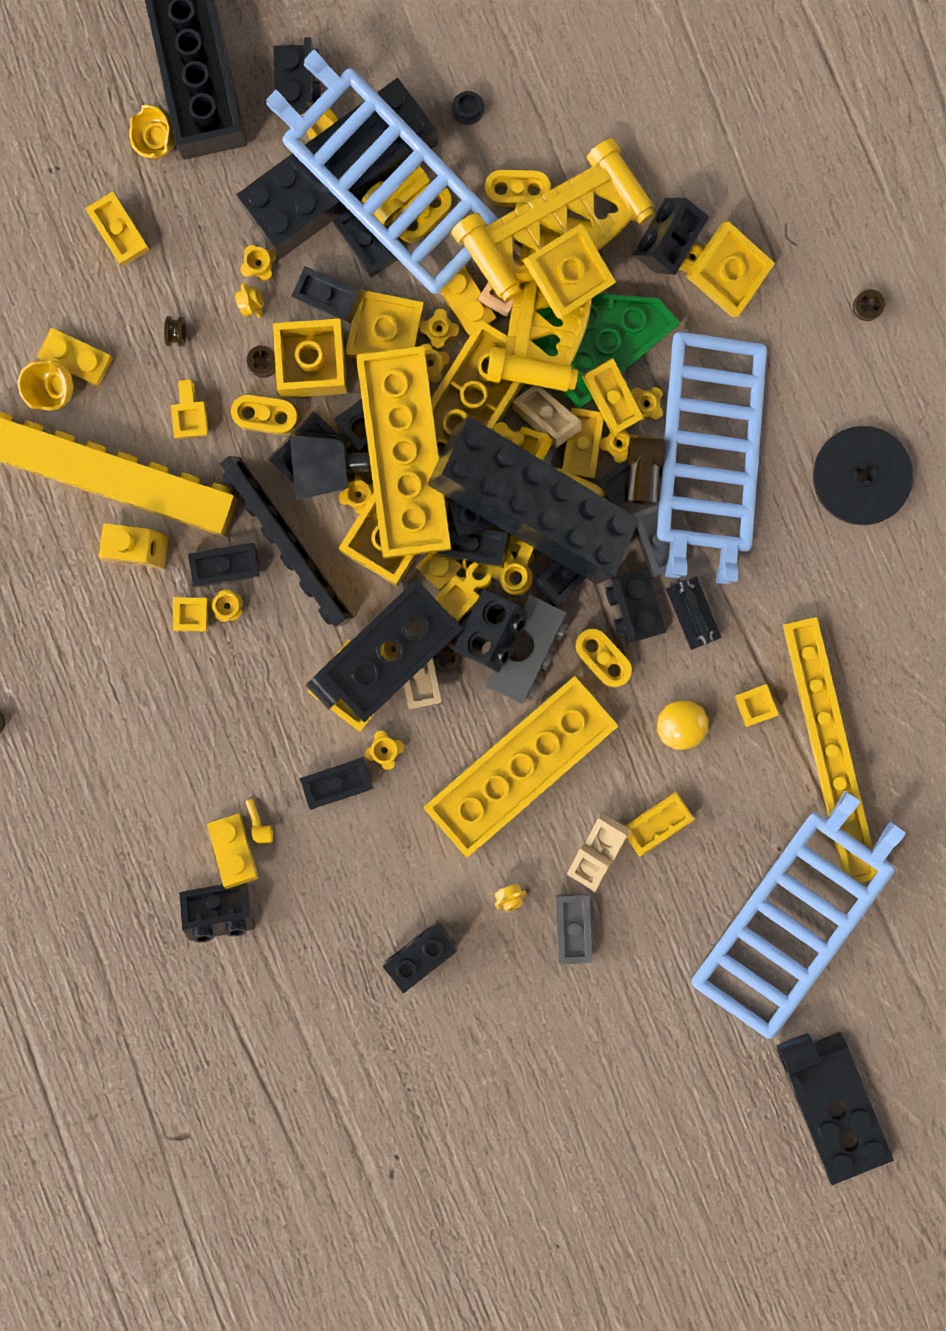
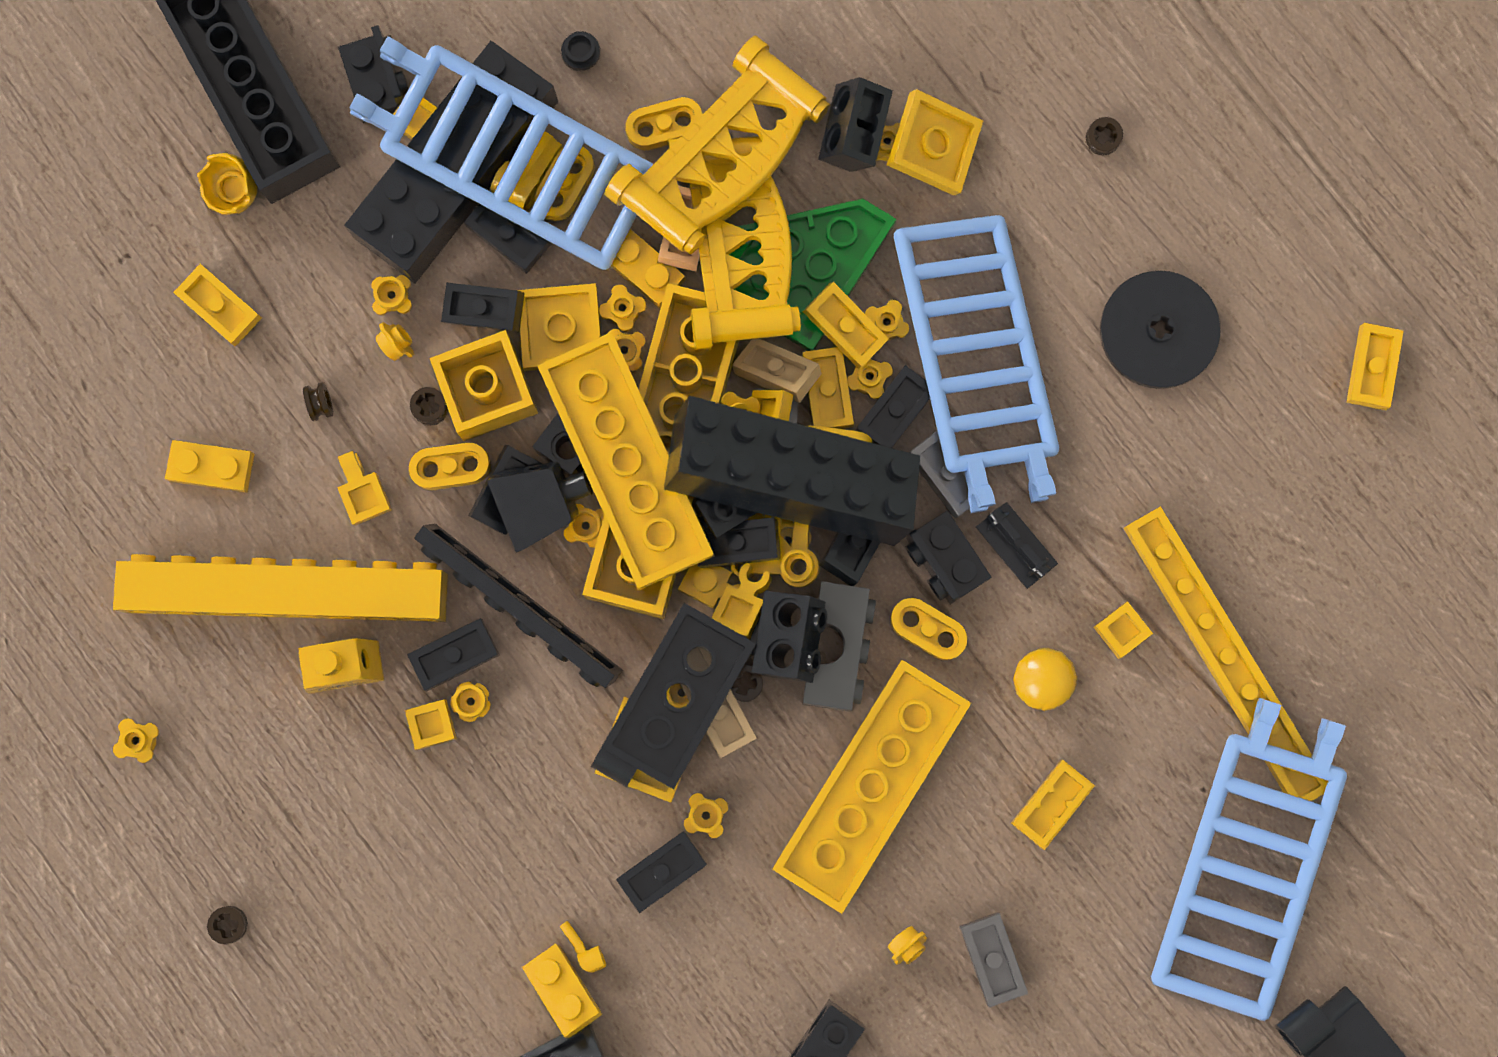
camera: 15 degrees left, 5 degrees down
(45, 385) = (184, 508): yellow hair -> none
(569, 271) = (753, 198): yellow plate -> none
(599, 852) = (994, 859): tan slope -> none
(644, 459) = (906, 386): dark brown piece -> none

